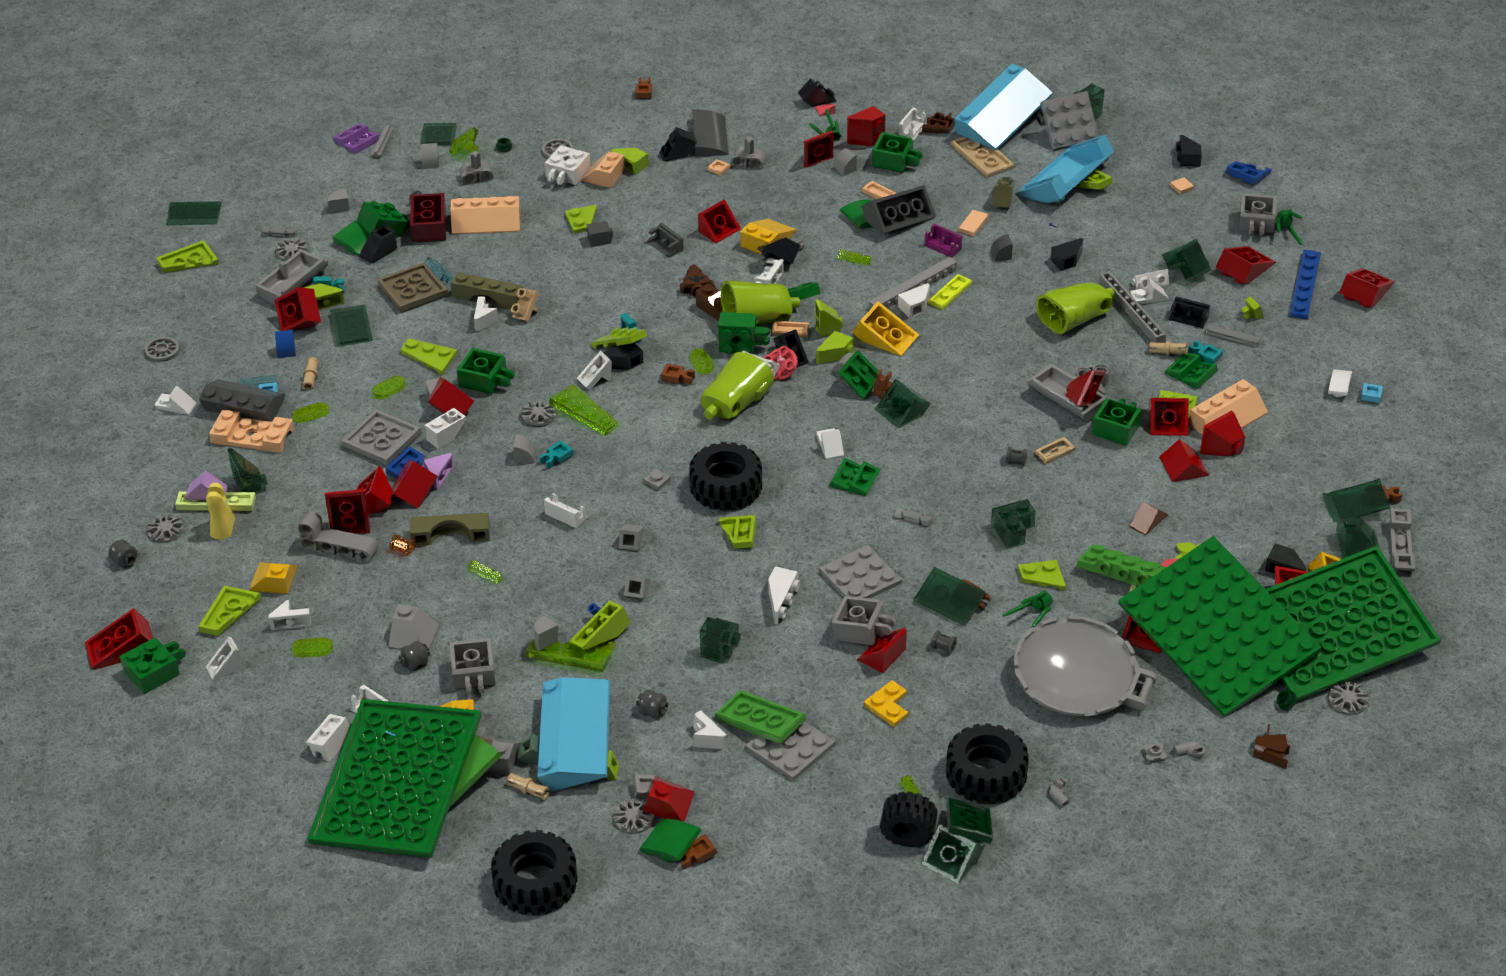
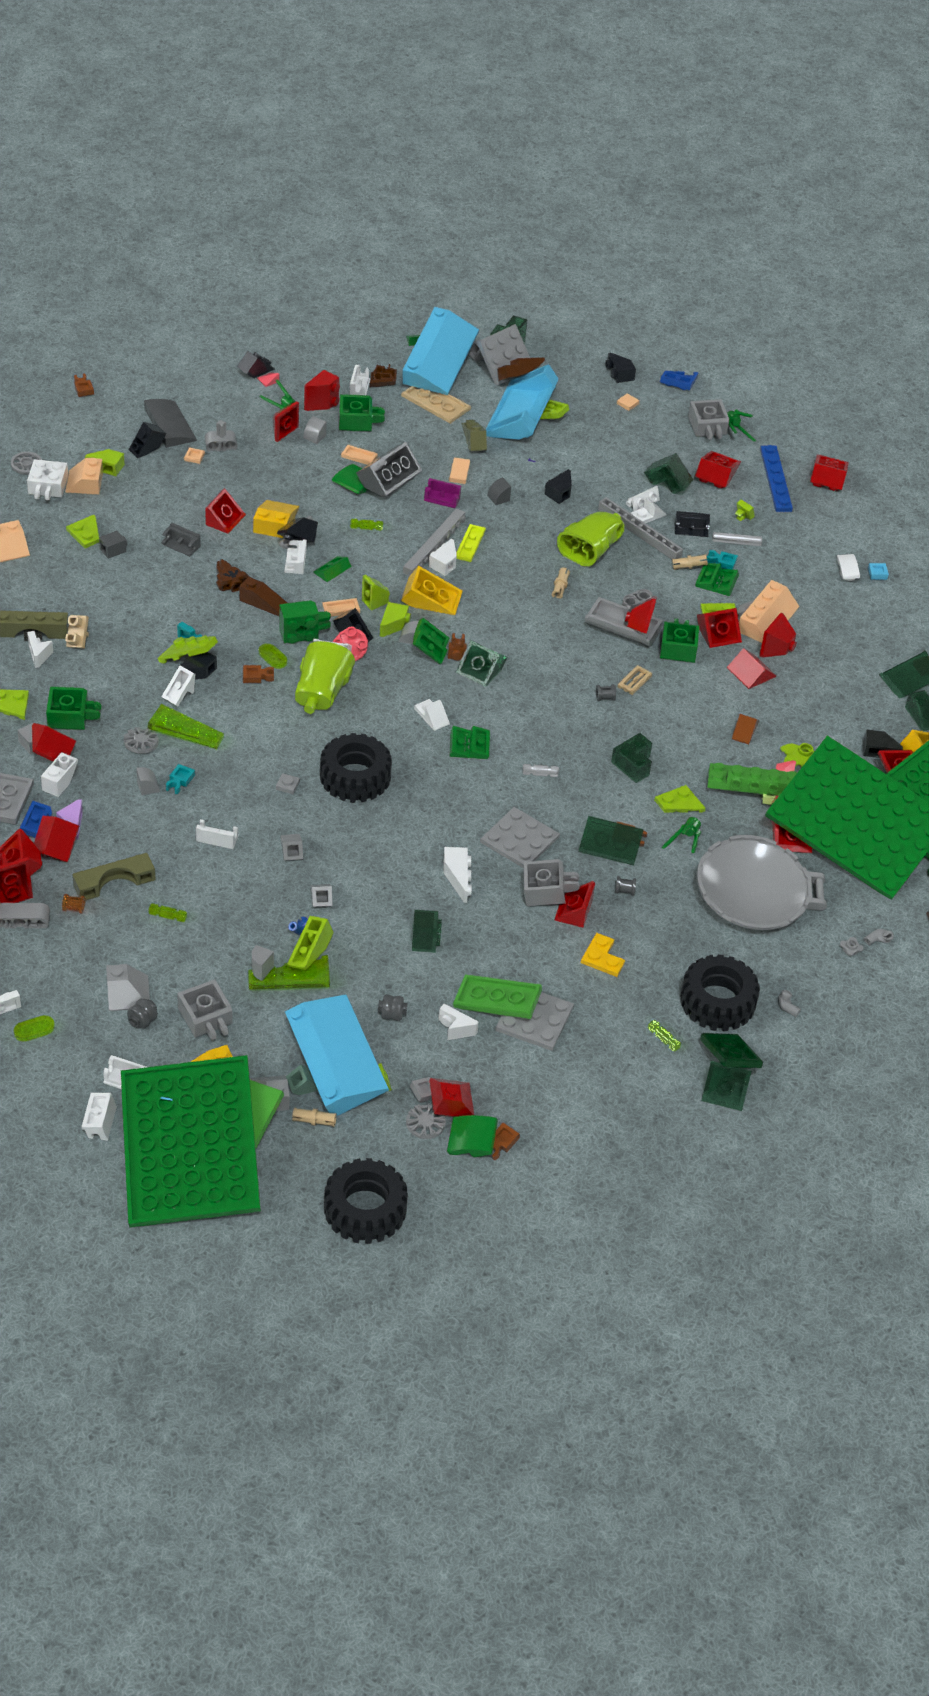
camera: 25 degrees left, 5 degrees up
(740, 530) = (390, 818): lime wing -> none
(765, 301) = (301, 585): lime torso -> none
(908, 819) = (680, 1062): black tyre -> none
(1023, 344) = (561, 583): none -> tan pin
(1078, 134) = (519, 367): none -> reddish brown slope

